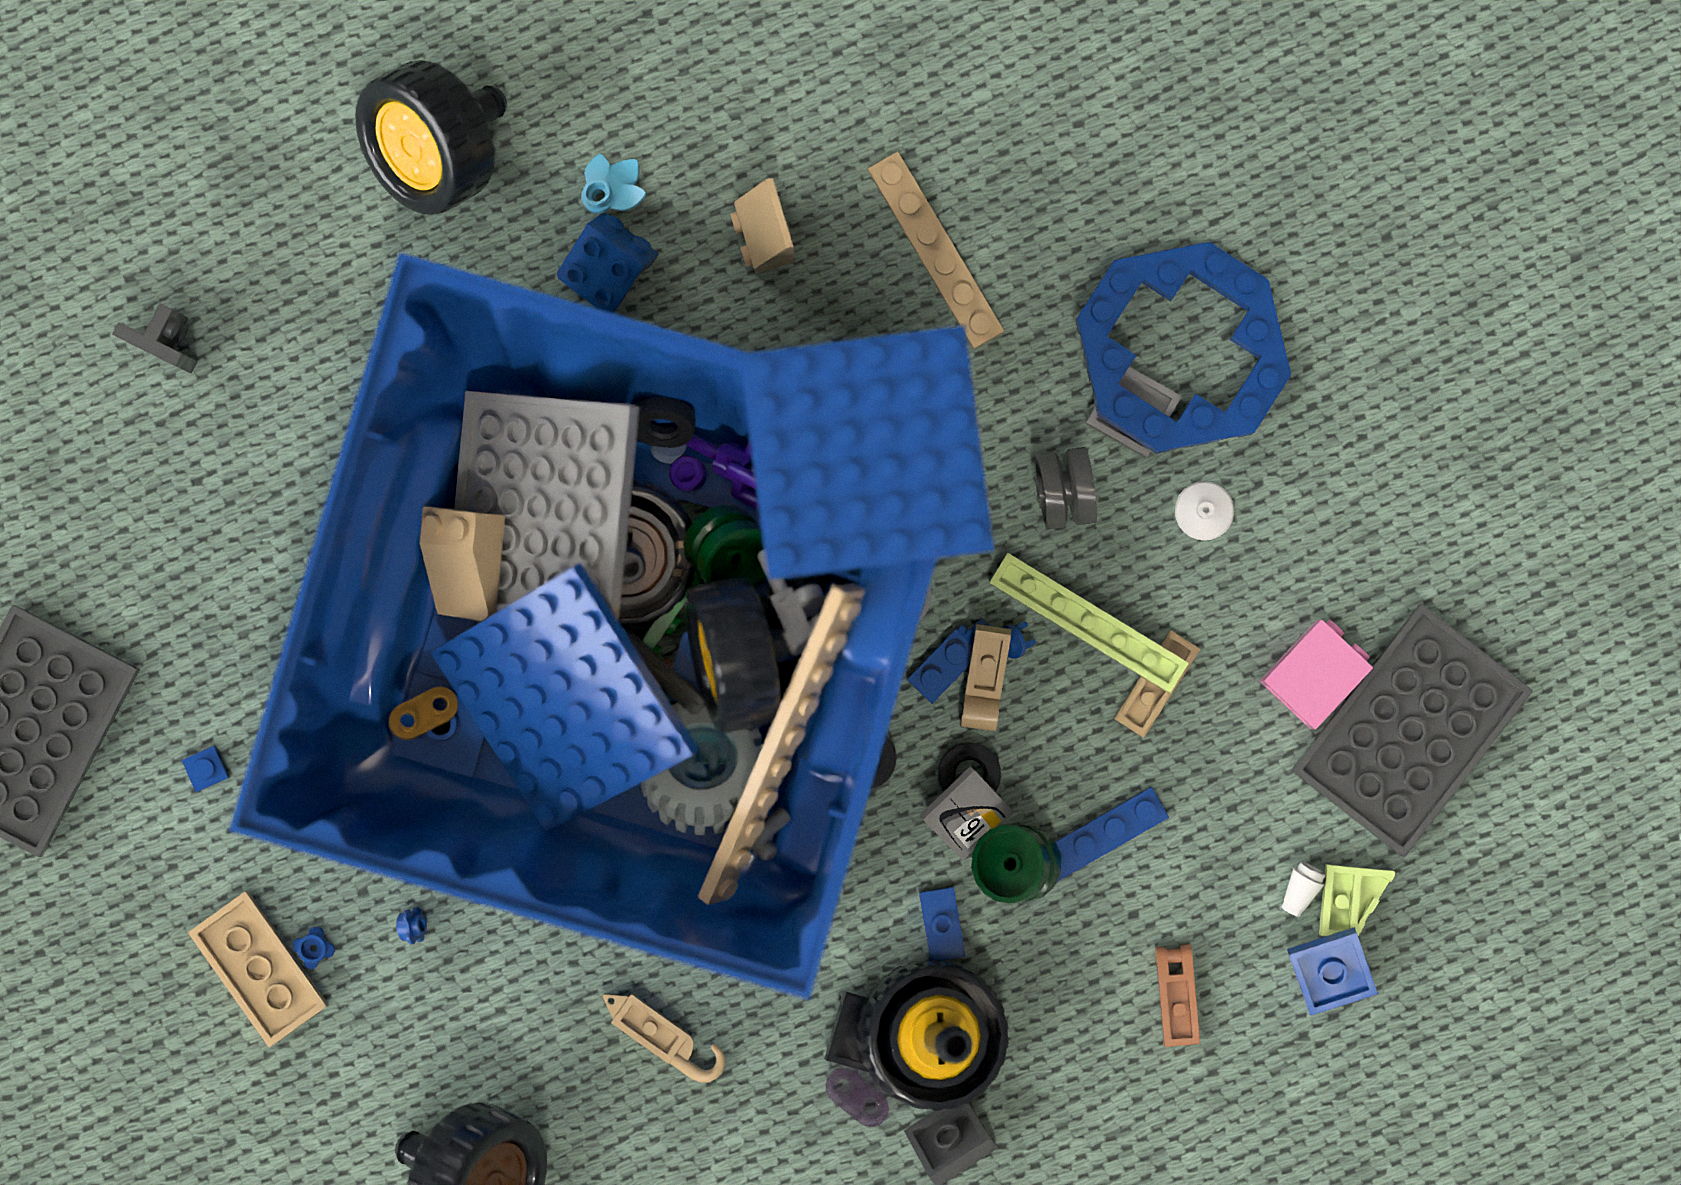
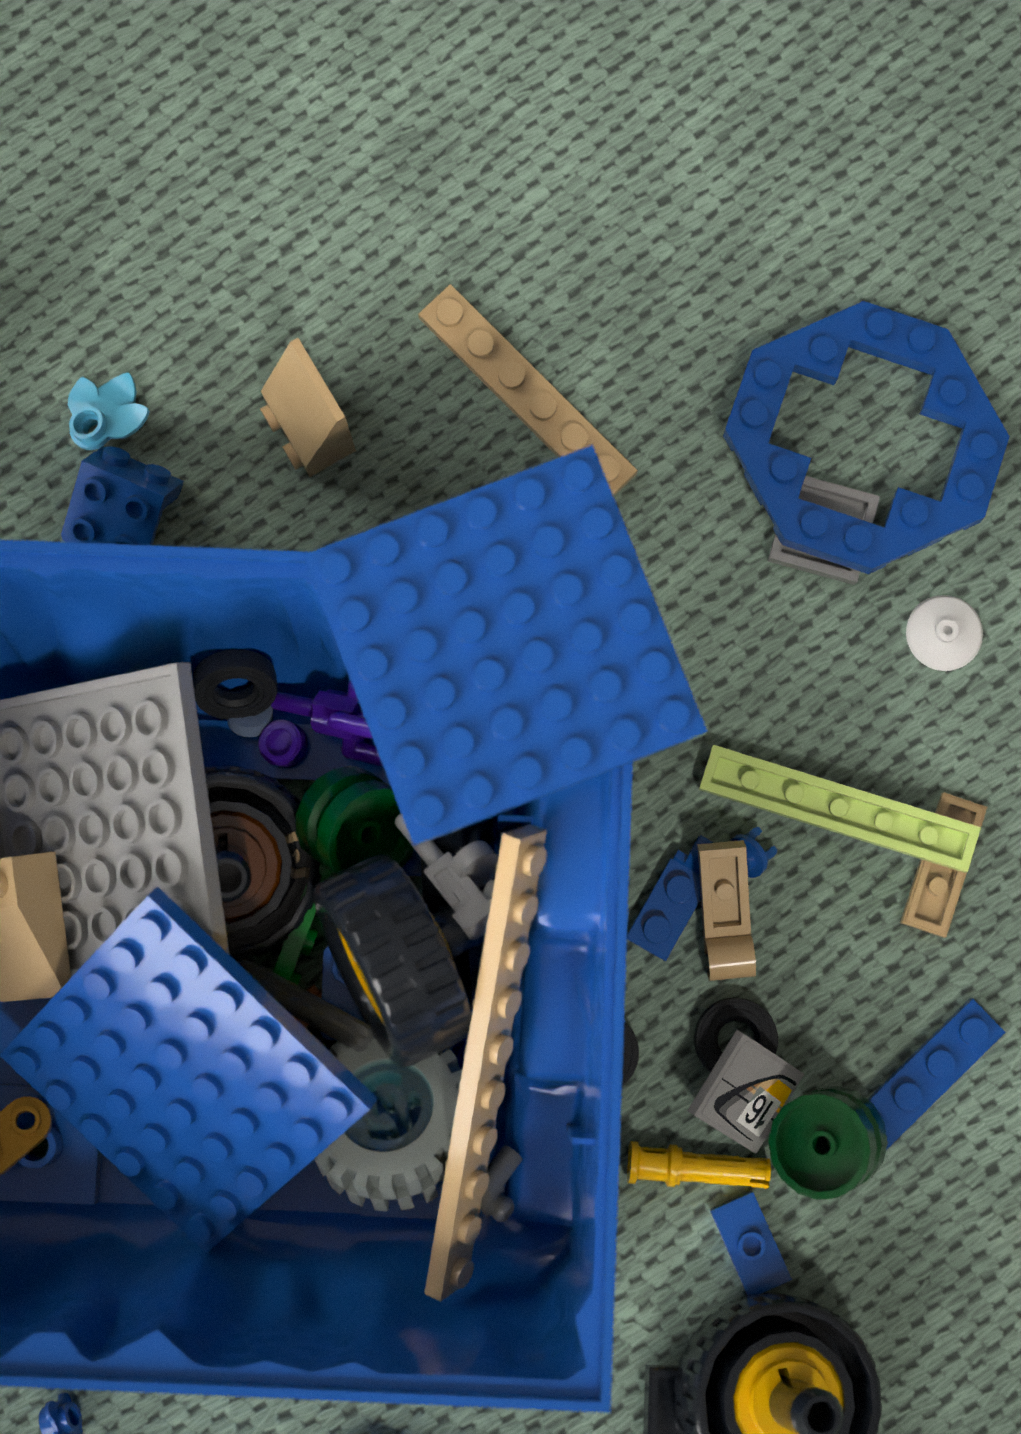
camera: 15 degrees left, 5 degrees down
(900, 854) = (674, 1166): none -> yellow pin
(1071, 488) = (767, 644): dark grey wheel -> none

